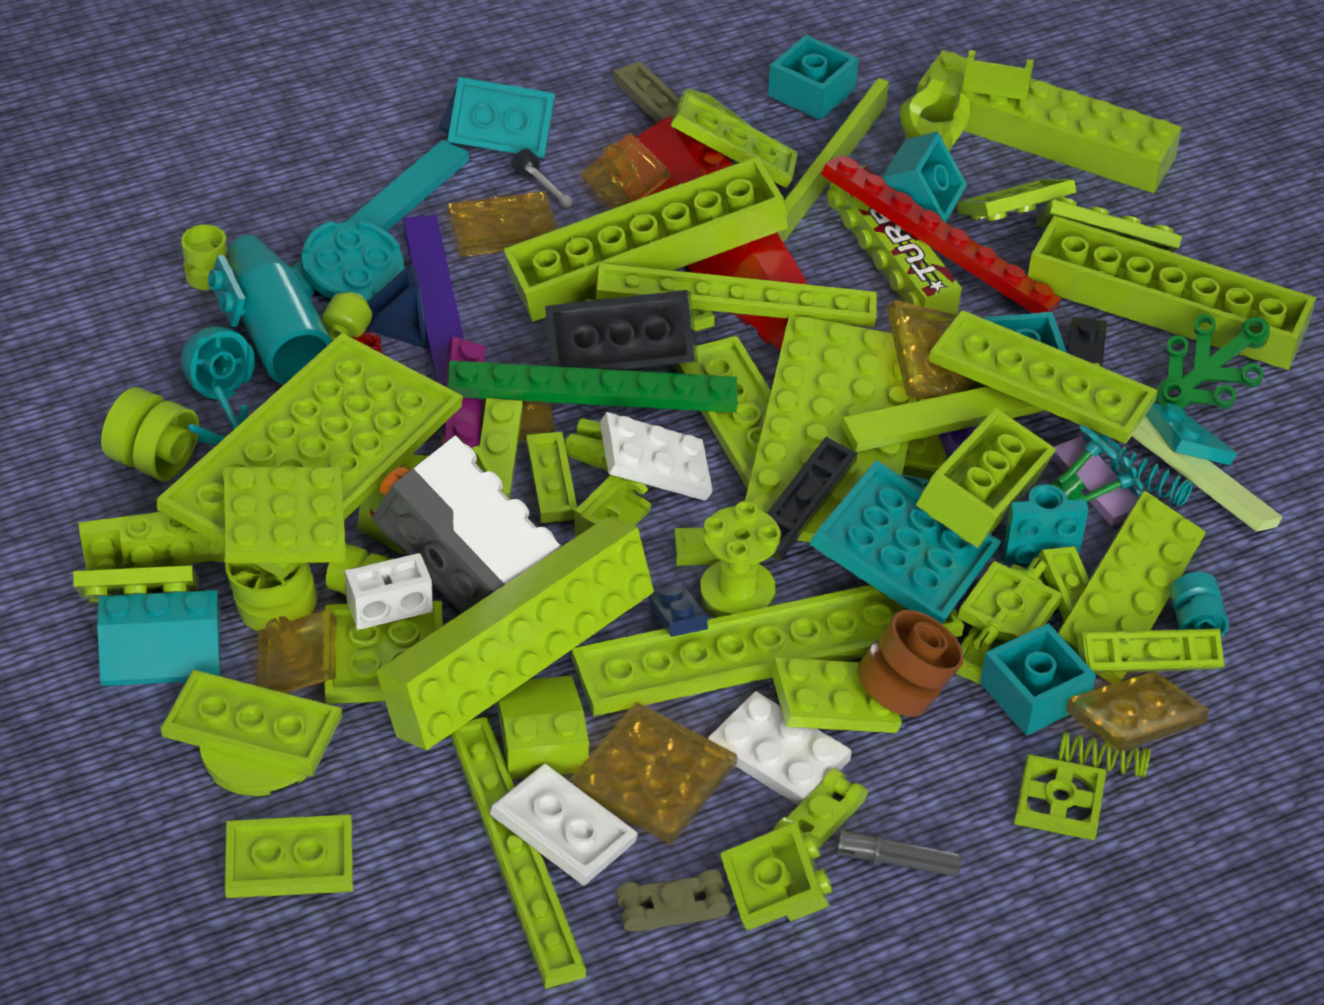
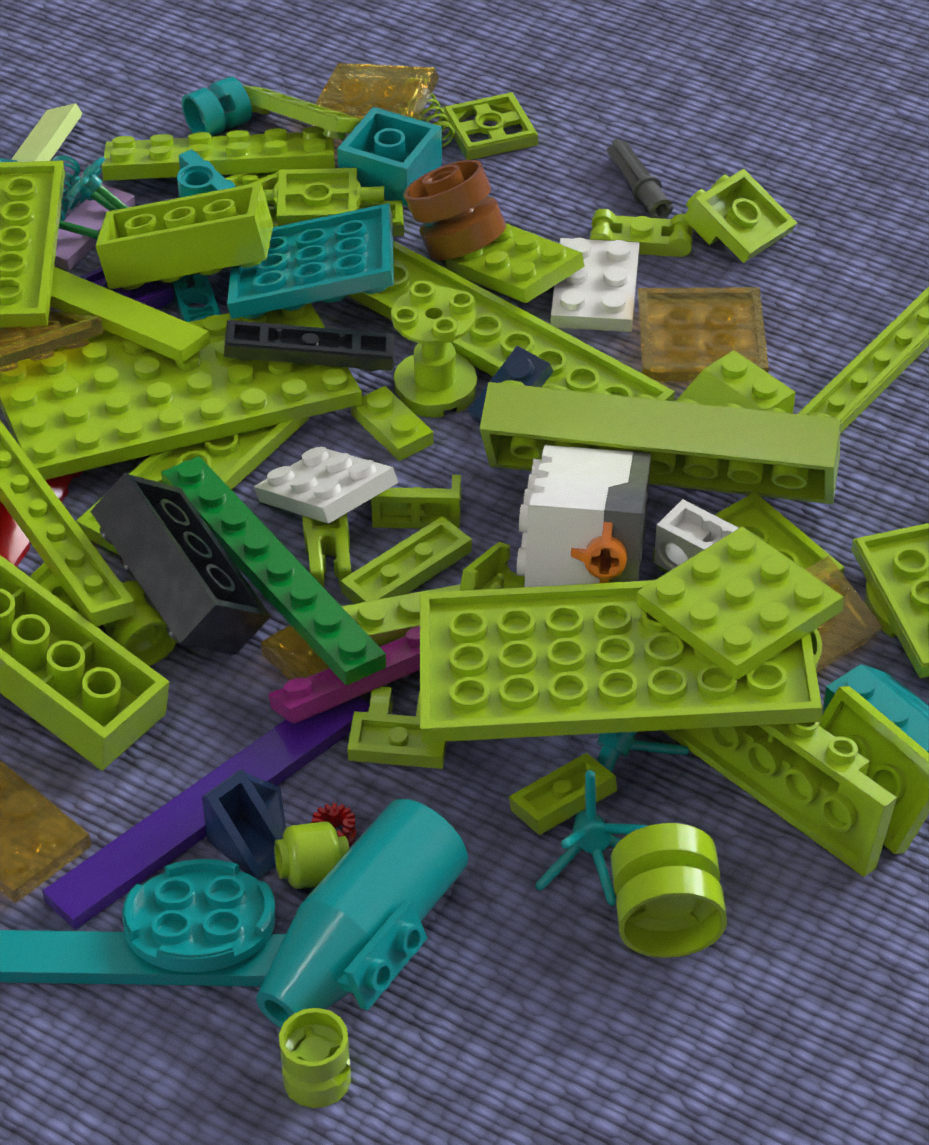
camera: 120 degrees left, 0 degrees up
(217, 359) = (490, 927): teal cylinder -> none
(564, 824) = (814, 354): white tile -> none
(673, 902) = (813, 273): olive plate -> none

